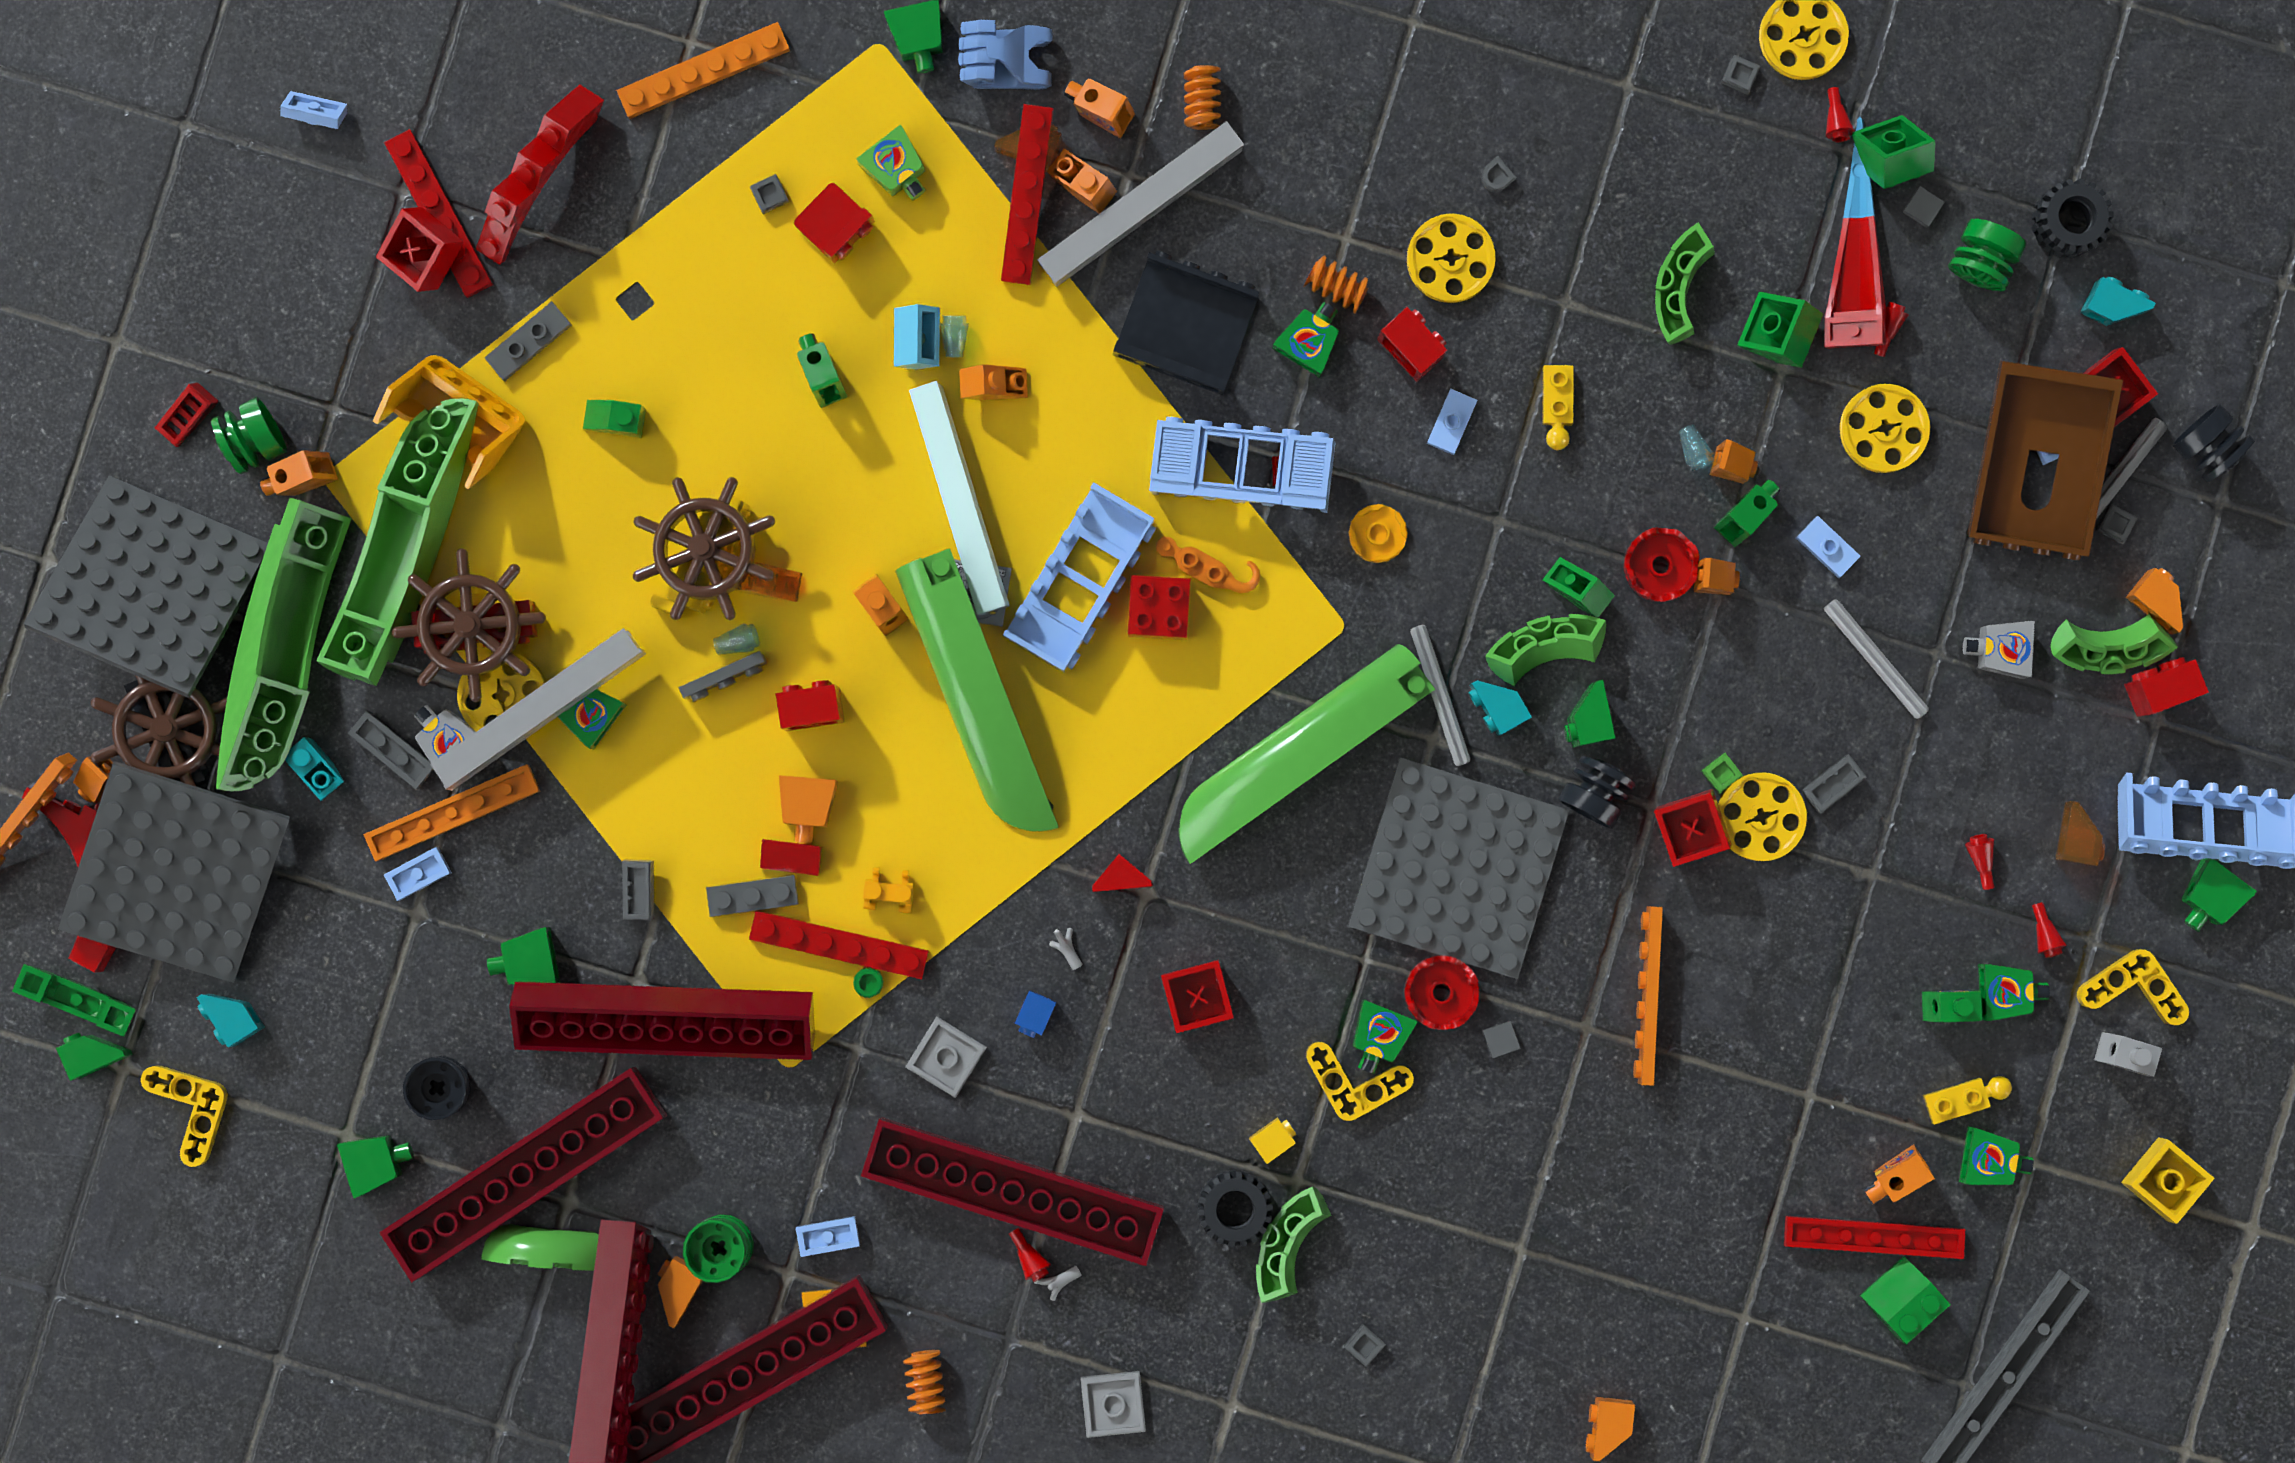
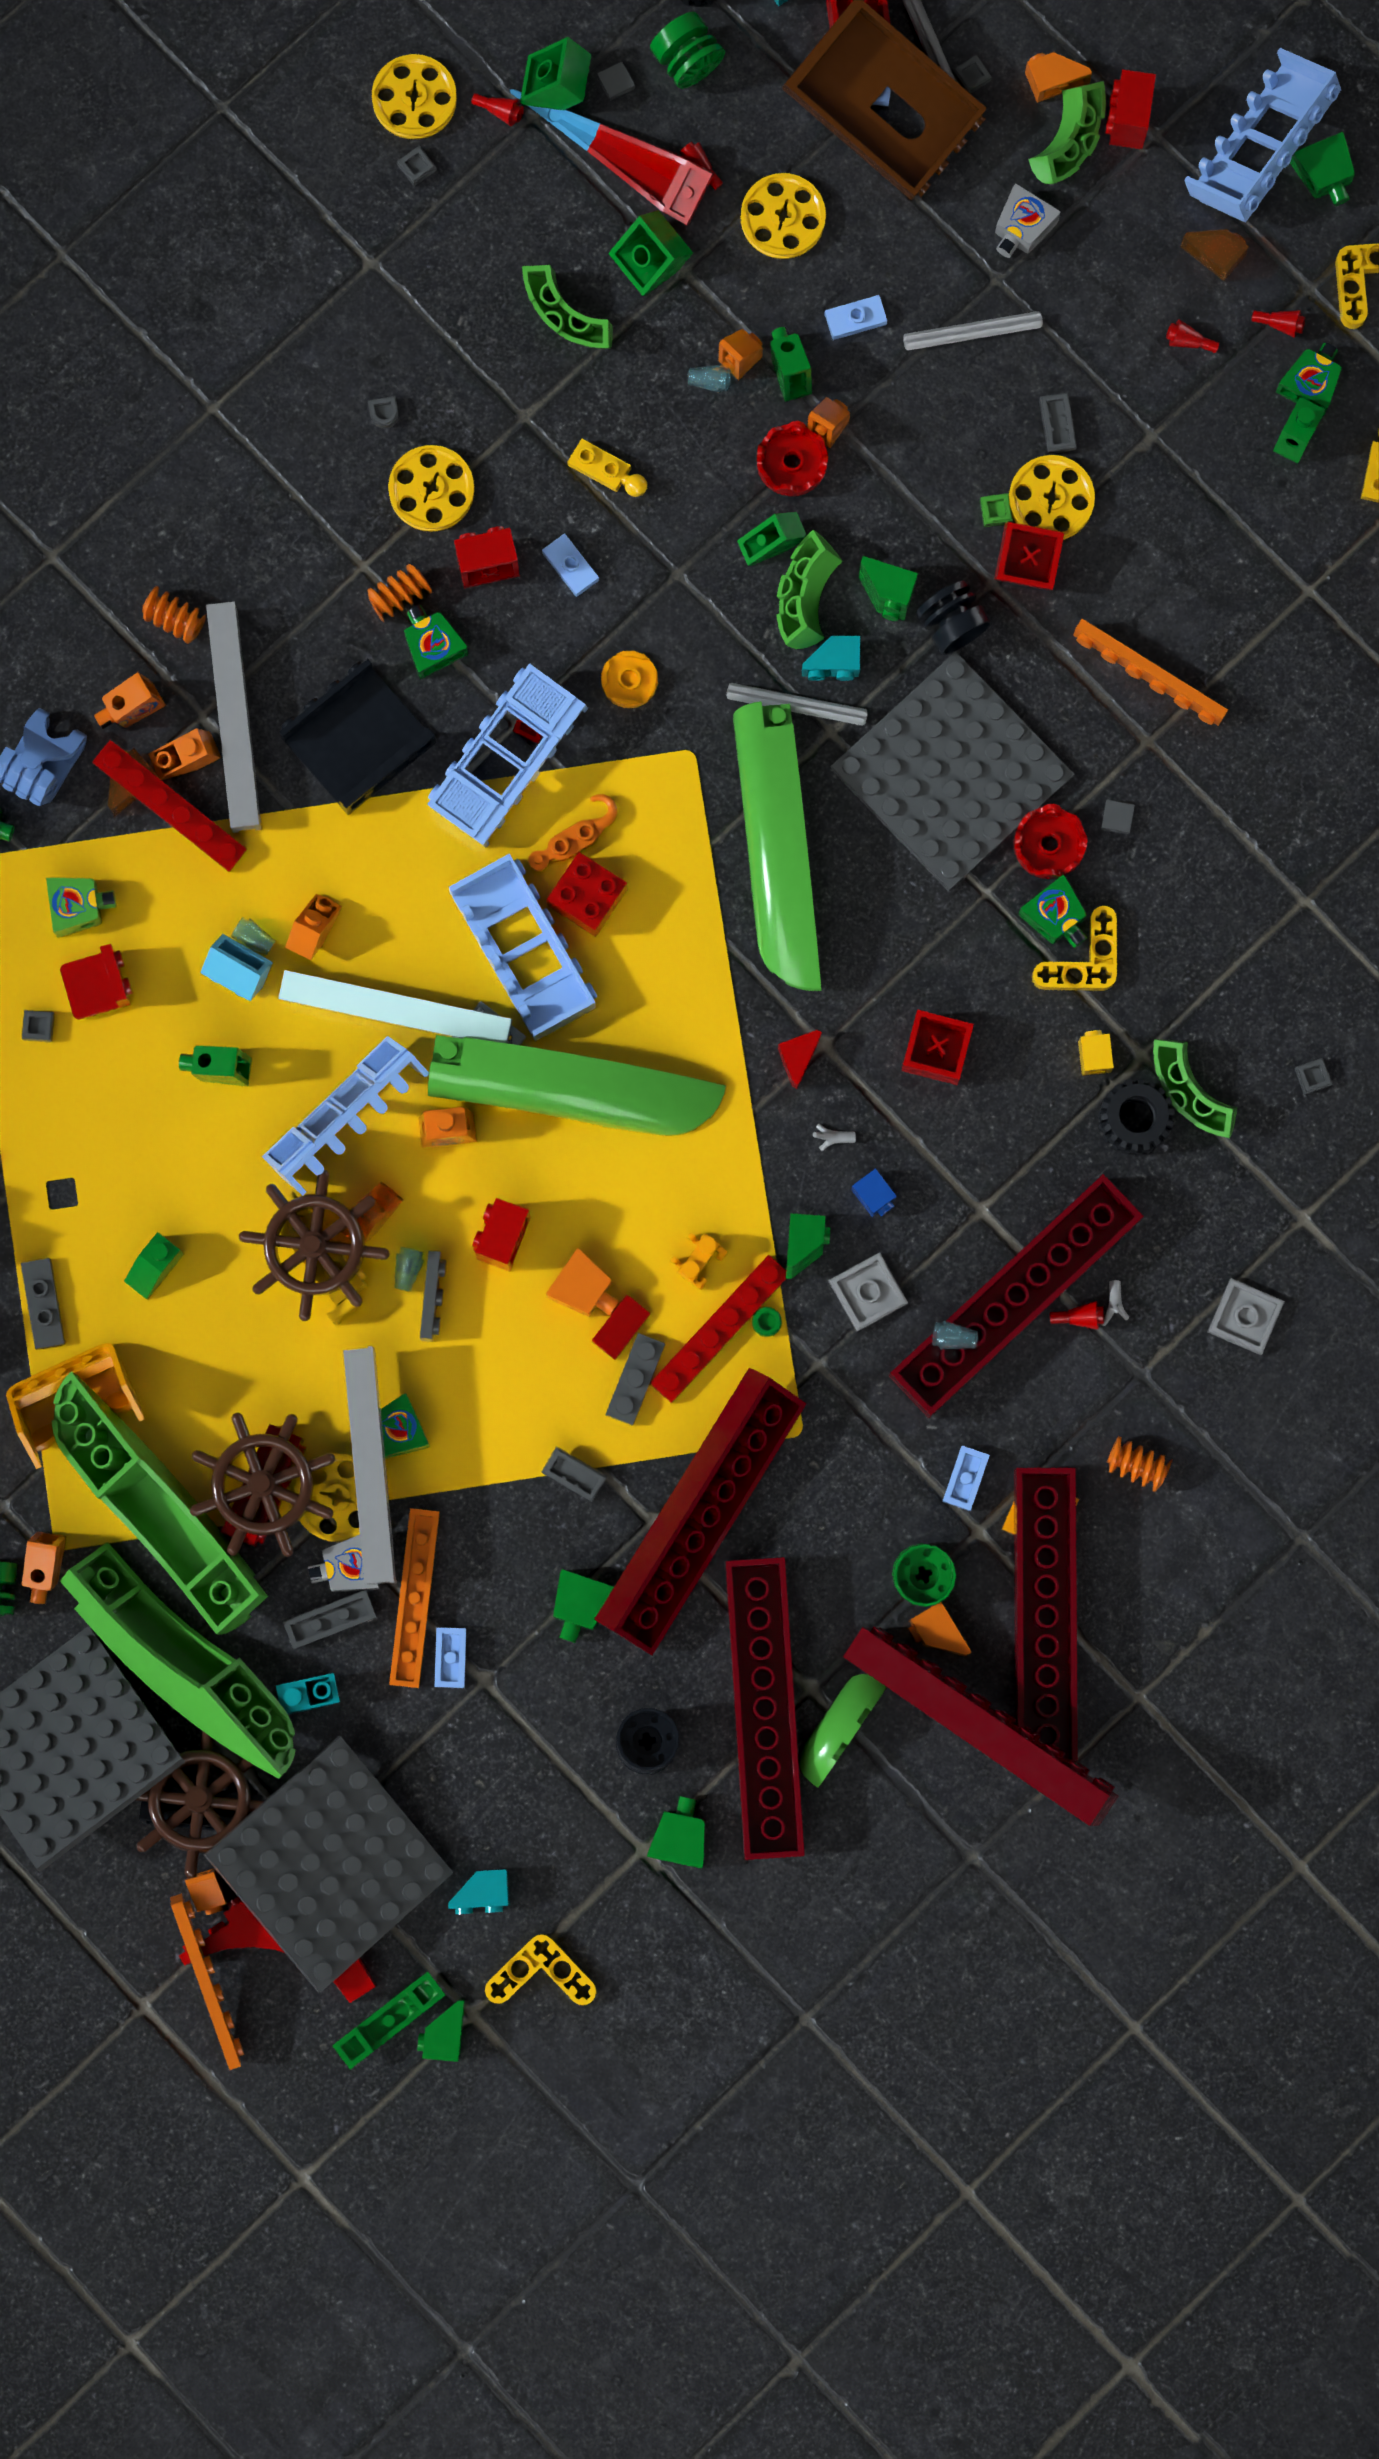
camera: 60 degrees left, 5 degrees down
(837, 501) = (341, 1108): none -> light blue window
(940, 1158) = (952, 1336): none -> clear light blue cone
(956, 977) = (805, 1241): none -> green slope

